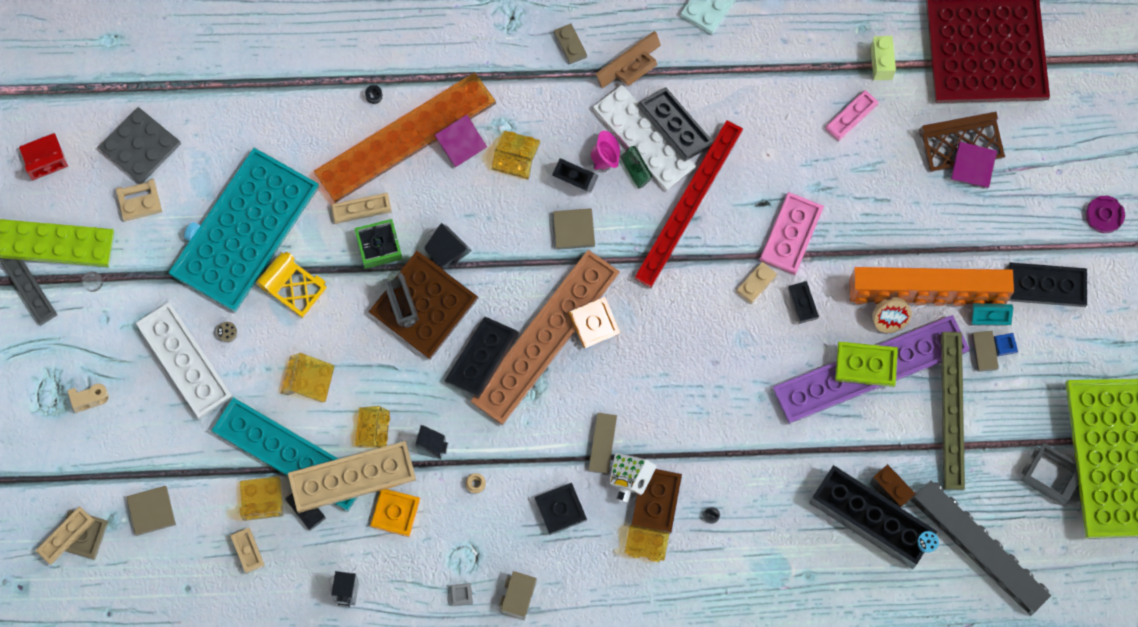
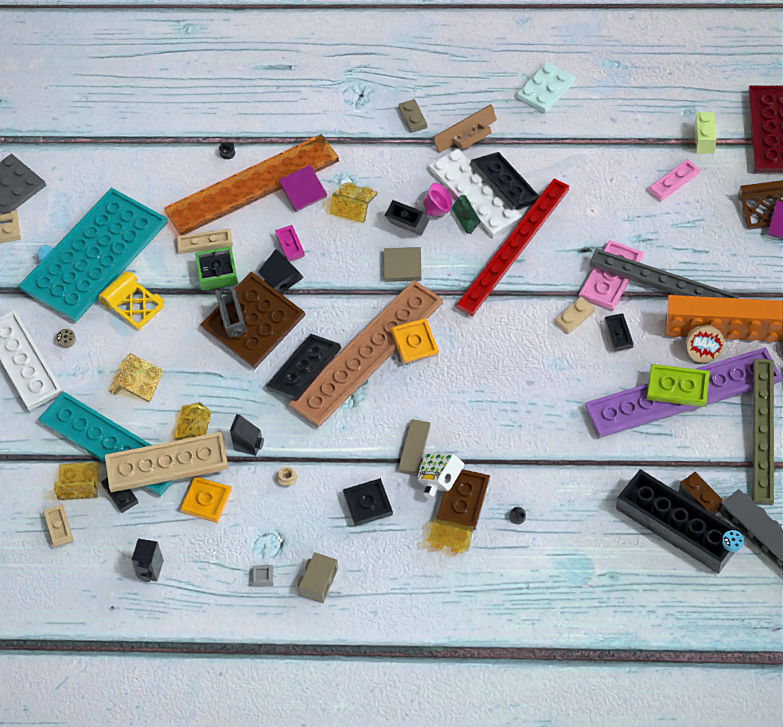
camera: 10 degrees right, 15 degrees down
(453, 208) = (289, 243): none -> dark pink plate
(845, 239) = (654, 277): none -> dark grey tile

